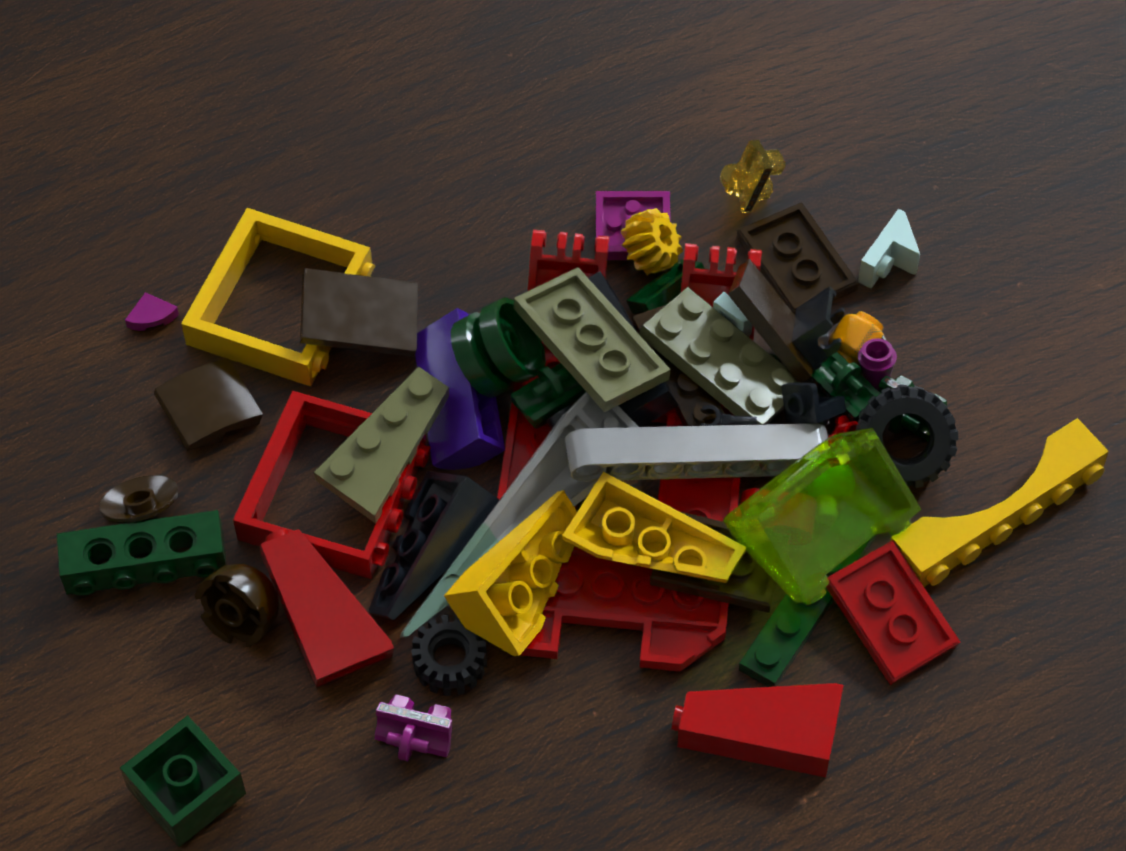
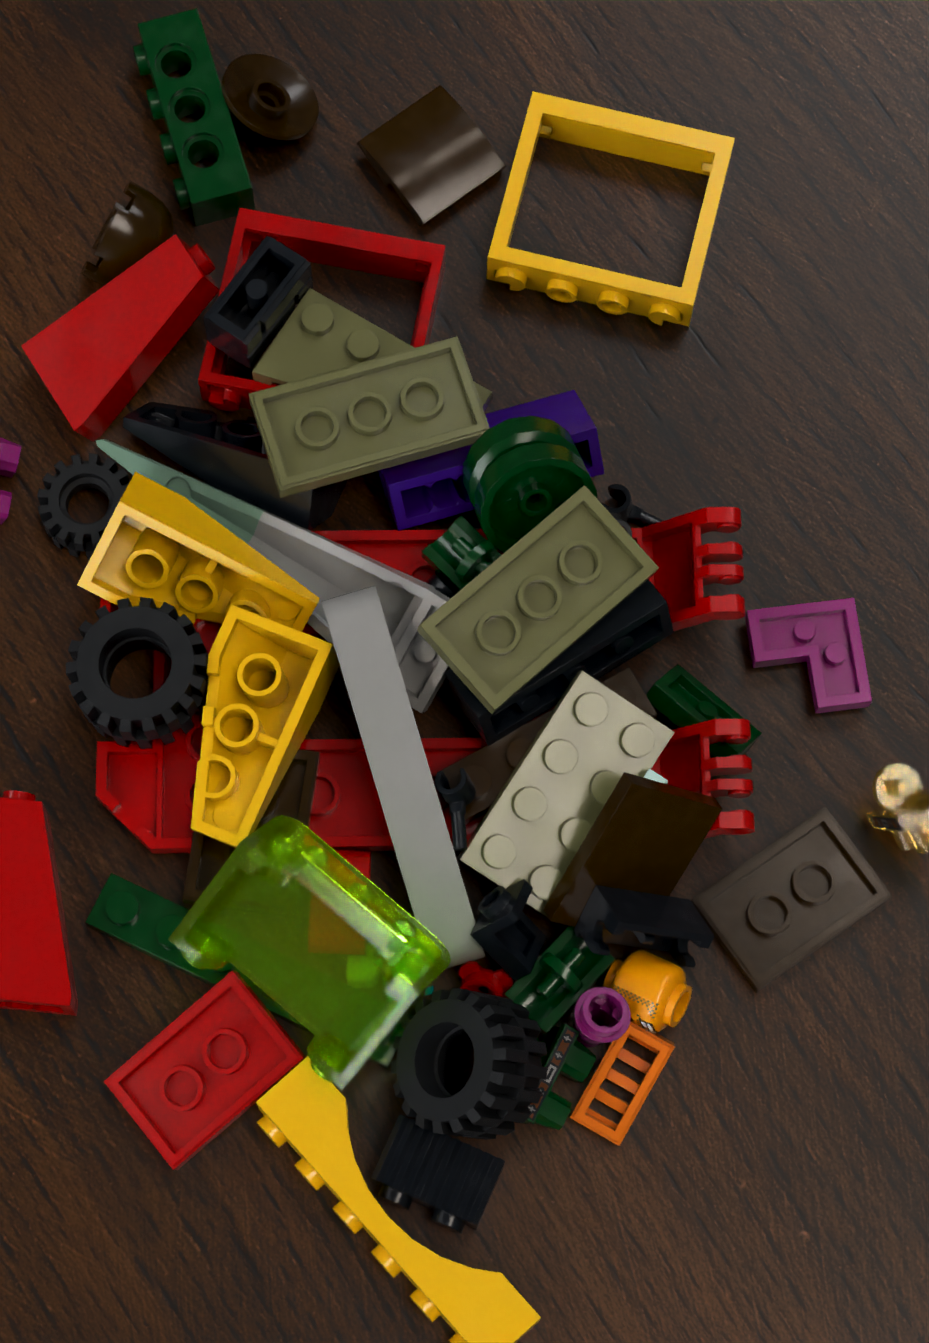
camera: 80 degrees right, 15 degrees up
(151, 312) = (567, 61): magenta tile -> none
(323, 499) = (258, 301): none -> black brick
(359, 312) = (581, 307): dark brown tile -> none
(430, 436) = (369, 416): none -> olive tile
(603, 581) = (109, 642): none -> black tyre
(651, 241) = (769, 681): yellow gear -> none
(892, 247) = (833, 1032): light aqua slope -> none
(911, 350) = (602, 1125): none -> orange slope
(973, 476) = (437, 1174): none -> black brick

